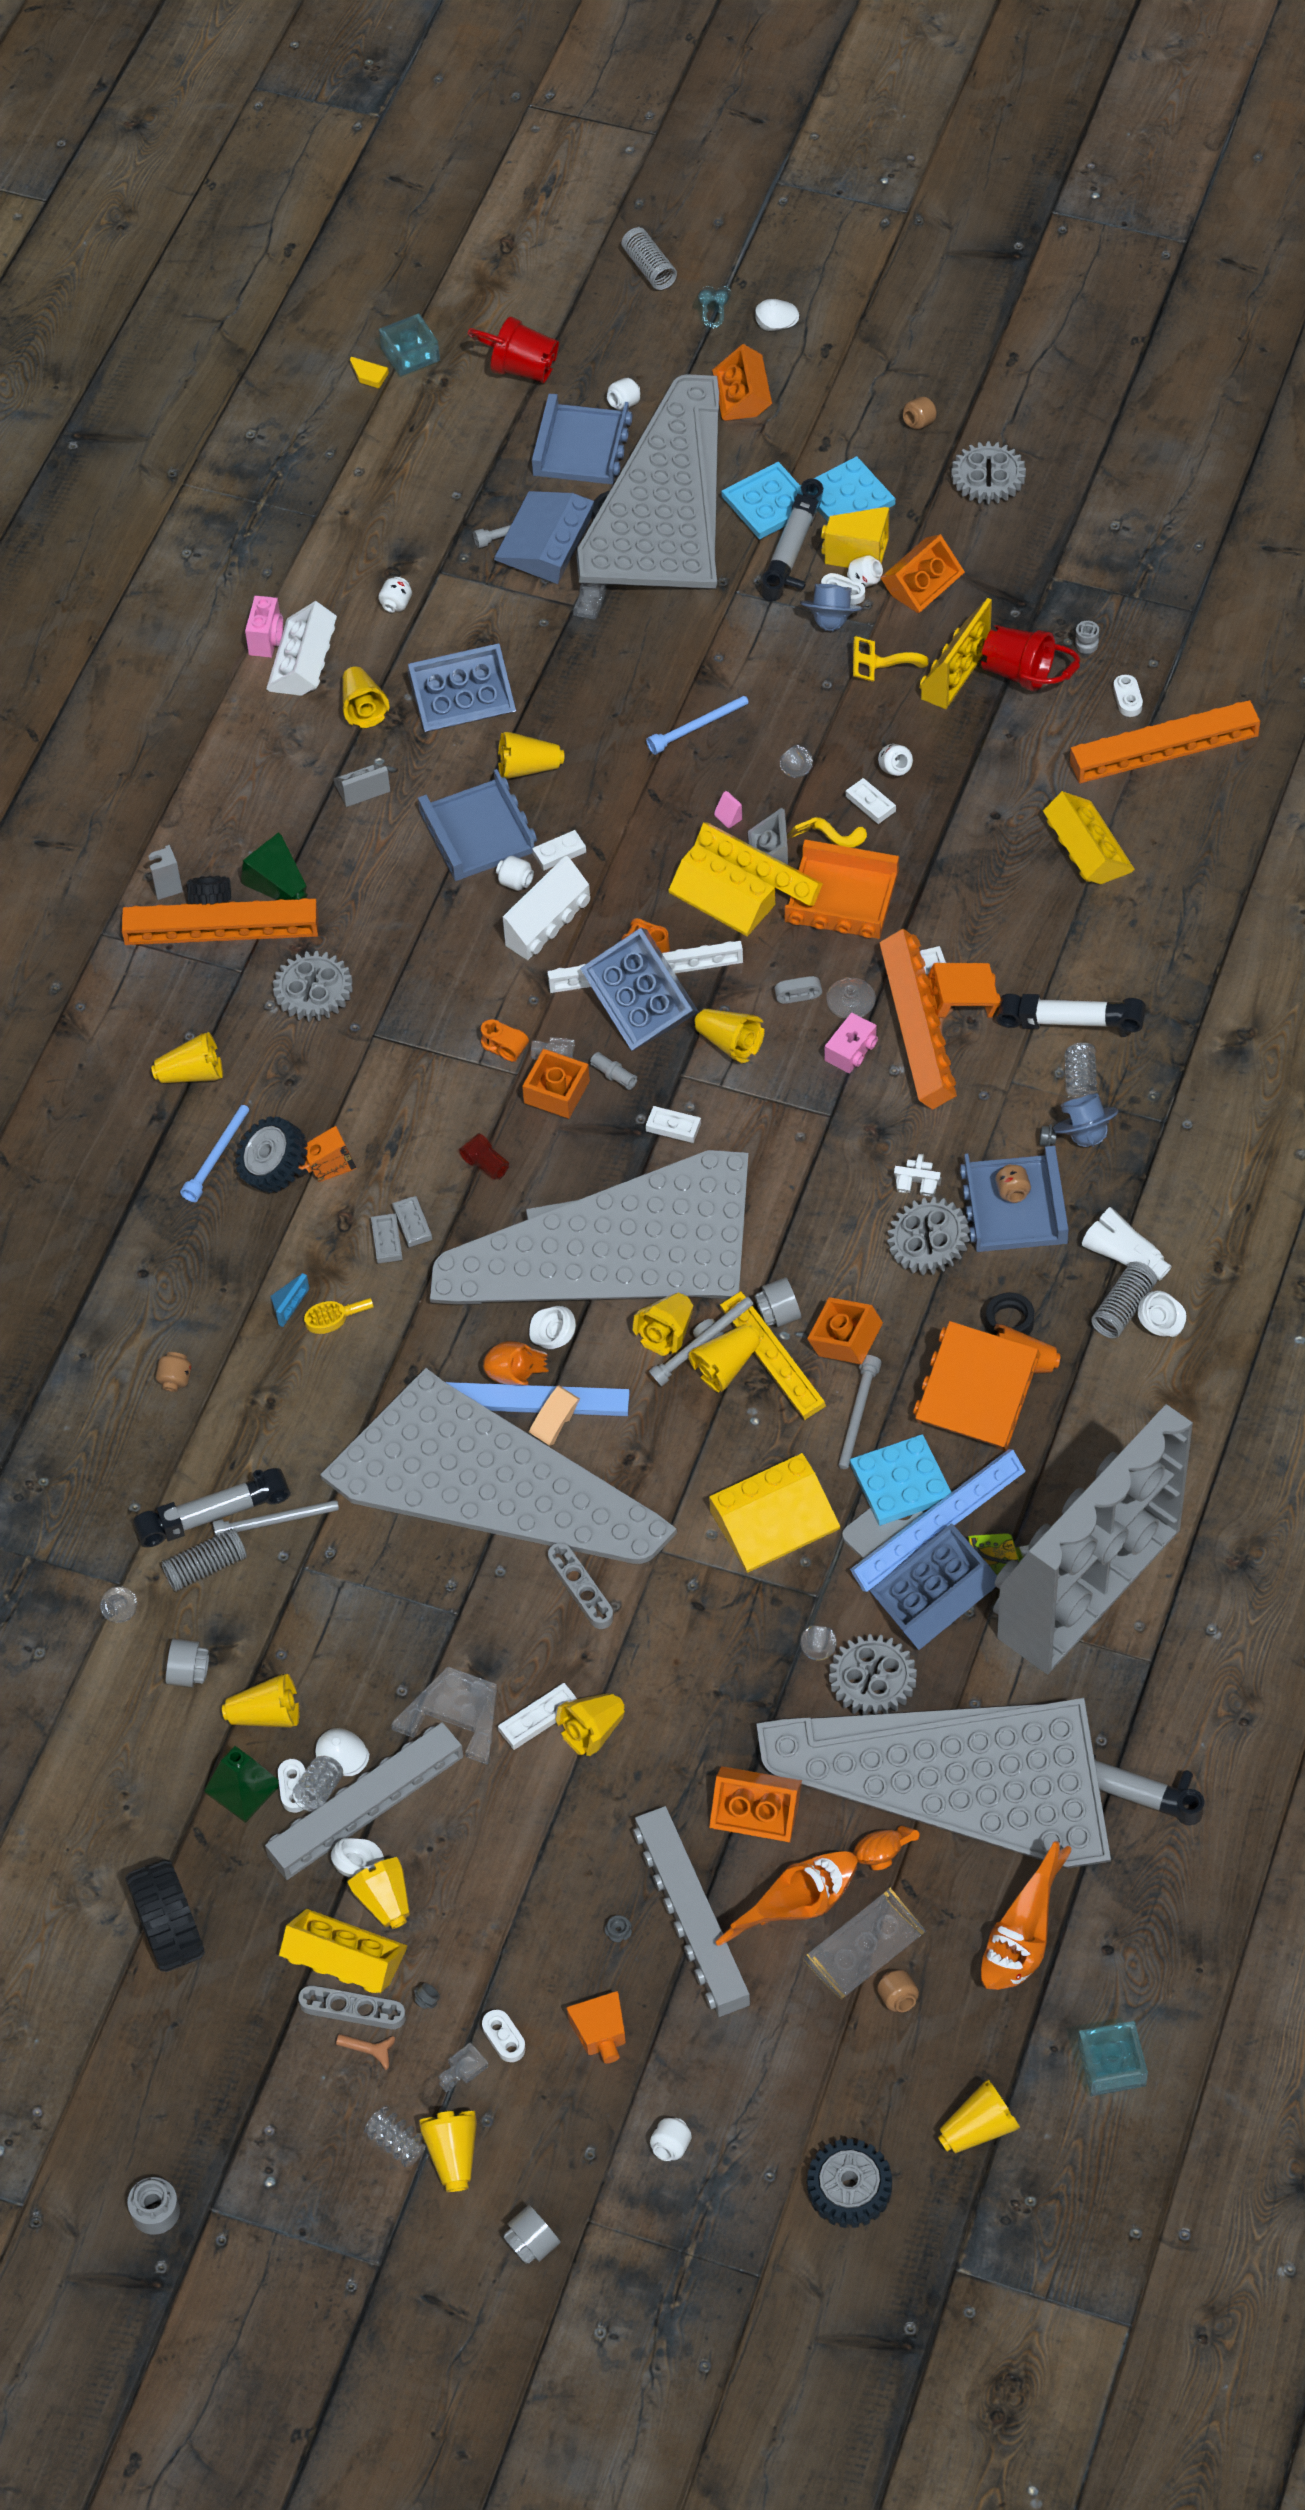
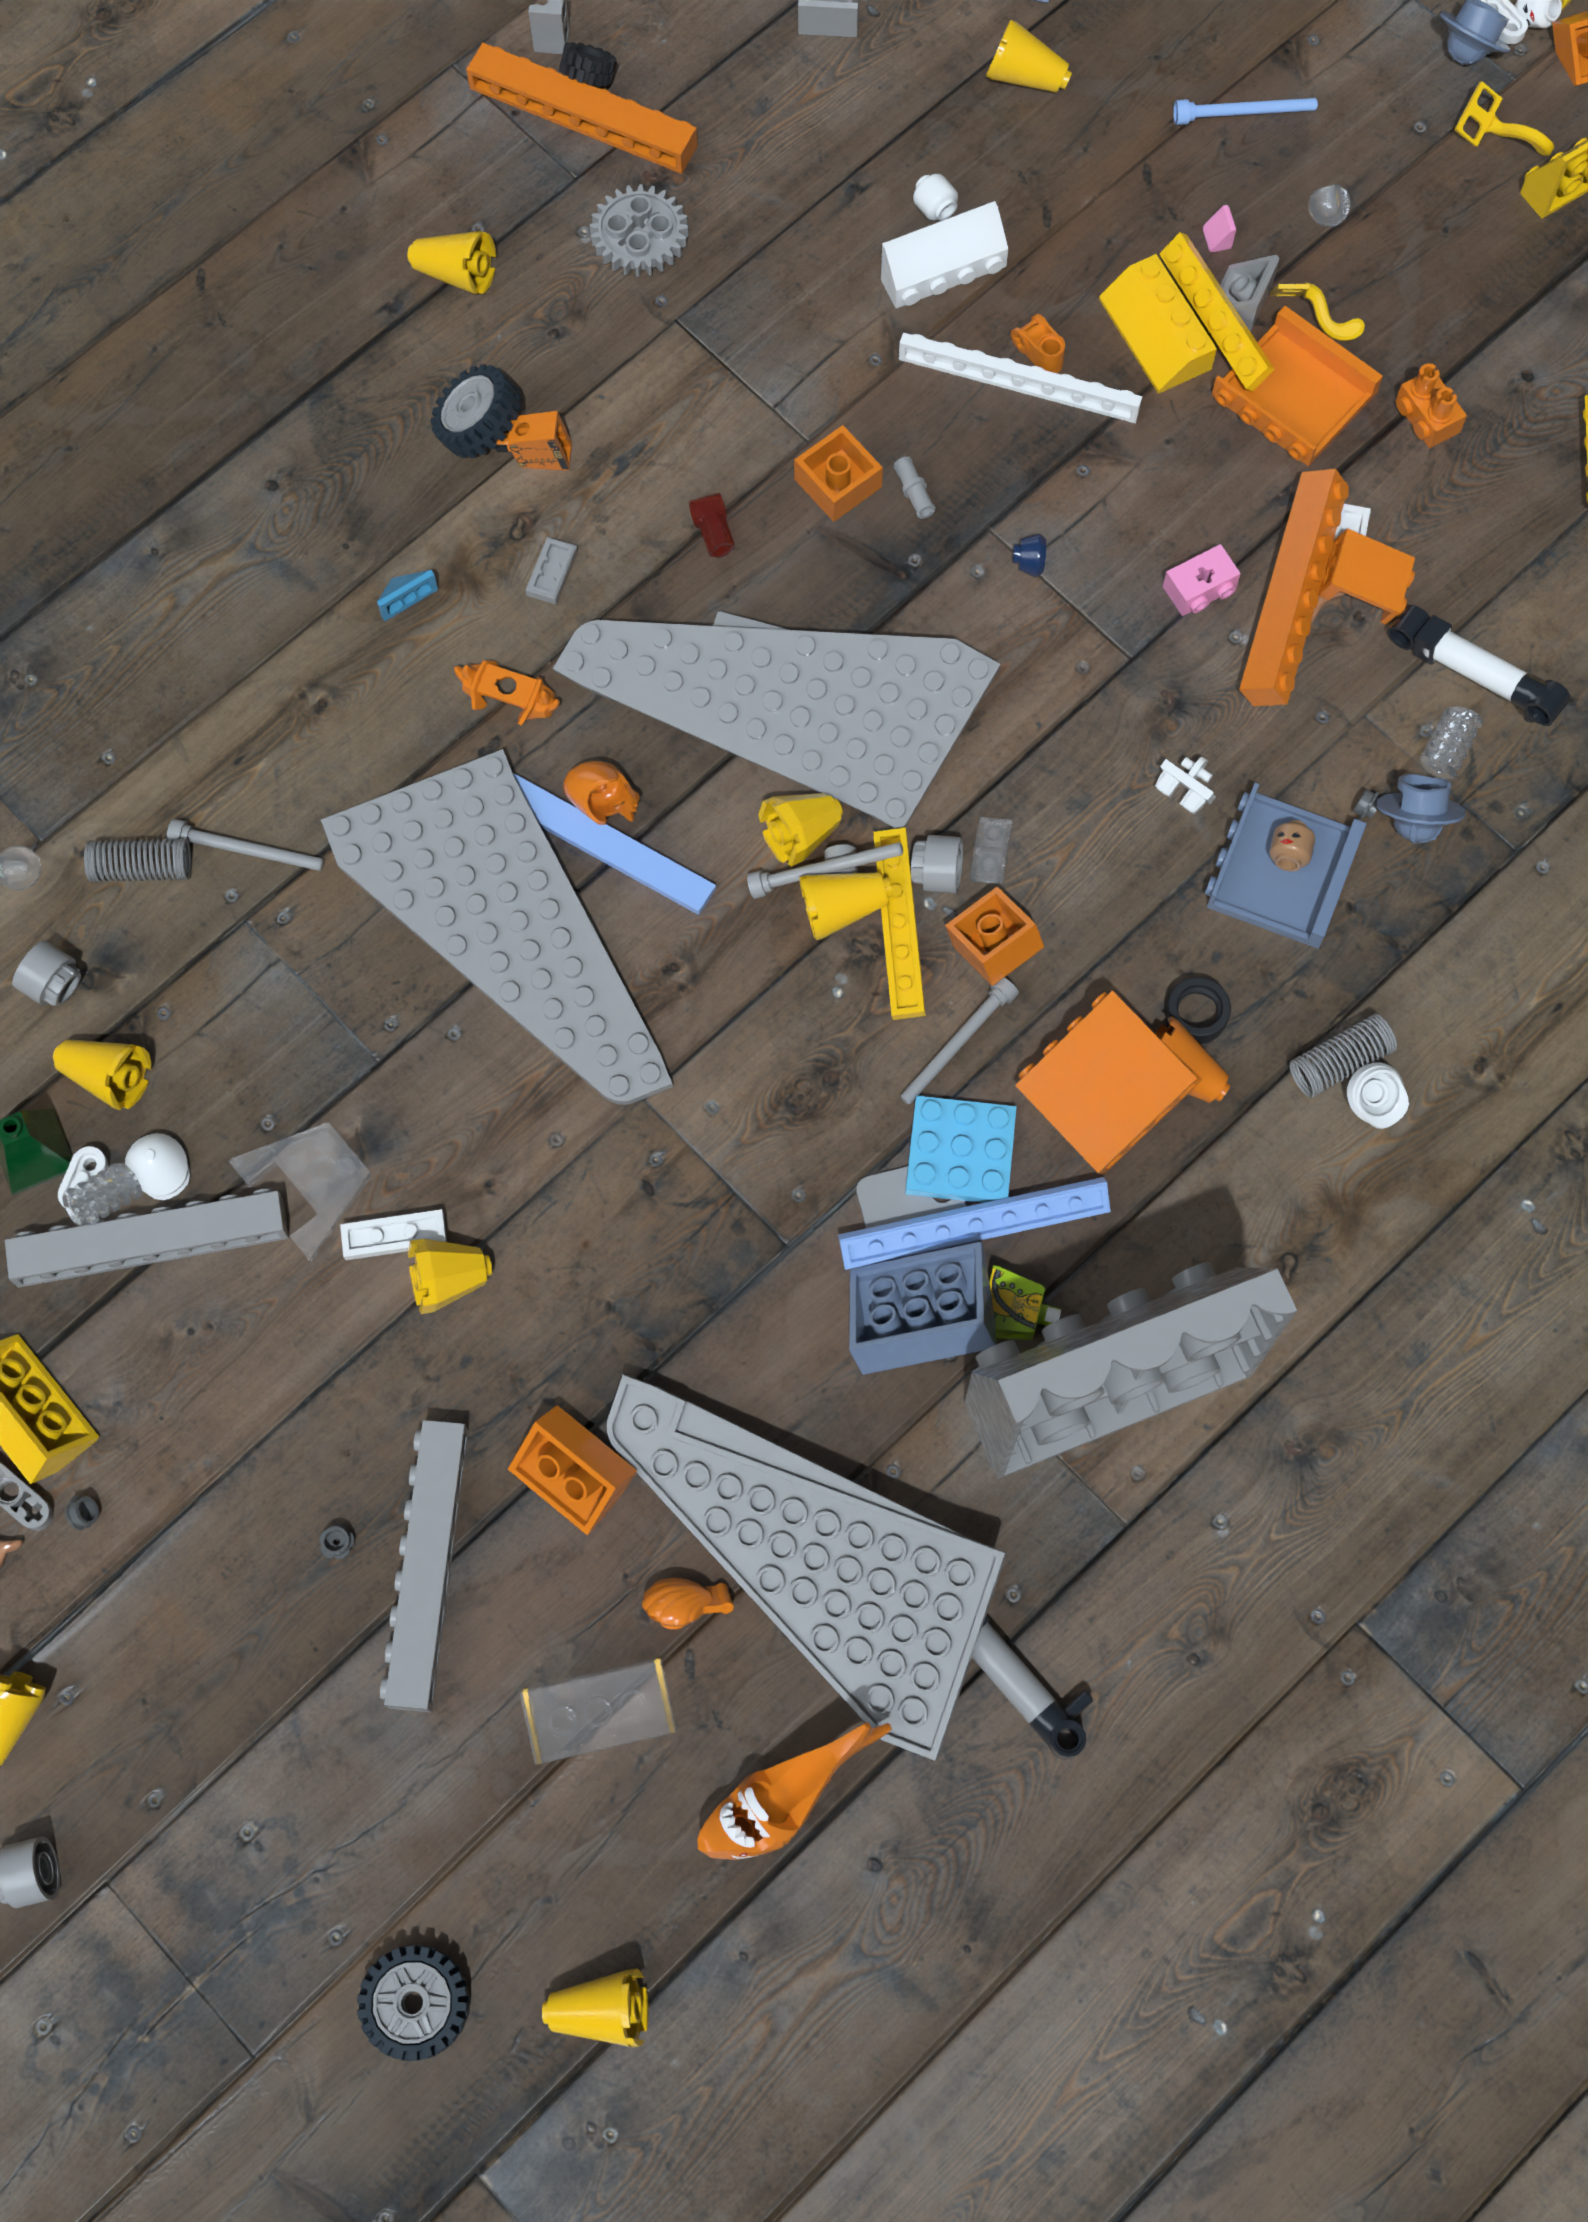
camera: 25 degrees right, 15 degrees up
(173, 1371) = (232, 618): medium nougat head -> none
(173, 1520) = (136, 797): piece -> none
(193, 1189) = (377, 410): light blue piece -> none
(273, 871) = (668, 73): dark green slope -> none
(331, 1315) = (441, 634): yellow piece -> none
(355, 1855) = (100, 1305): white hat -> none
(383, 1892) = (100, 1365): yellow cone -> none
(412, 1221) = (590, 564): light grey plate -> none
(421, 1325) = (530, 693): none -> orange piece
(465, 2065) = (76, 1620): clear plate -> none
(478, 827) = (927, 124): sand blue panel -> none
(504, 2037) = (137, 1607): white plate -> none
(505, 1041) = (811, 392): orange piece -> none
(552, 1327) = (671, 768): white hat -> none
(553, 851) = (1005, 190): white plate -> none
(553, 1414) = (612, 875): light nougat slope -> none
(557, 1045) = (866, 430): clear plate -> none
(583, 1584) = (531, 1097): light grey beam -> none
(599, 2025) = (246, 1653): orange torso -> none
(639, 989) = (993, 402): sand blue slope -> none
(670, 2139) = (245, 1836): white head -> none
(673, 1124) = (944, 584): white plate -> none
(723, 1078) = (1030, 555): none -> dark blue cone
(731, 1032) = (1071, 504): yellow cone -> none
(773, 1513) = (792, 1120): yellow slope -> none
(798, 989) = (1177, 486): light grey beam -> none
(800, 1892) = (554, 1613): orange piece -> none
(808, 1280) = (991, 850): none -> clear slope
(818, 1642) = (752, 1307): clear piece -> none
(843, 1003) = (1234, 535): clear dish -> none
(870, 801) = (1390, 292): white plate -> none
(895, 759) = (1445, 263): white head -> none
(895, 1684) = (773, 1355): light grey gear -> none
(898, 1991) = (601, 1792): medium nougat head -> none
(942, 862) = (1430, 407): none -> orange brick
(951, 1231) = (1185, 870): light grey gear -> none
(1112, 2058) = (796, 2017): clear light blue brick -> none
(1120, 1242) = (1381, 982): white piece -> none

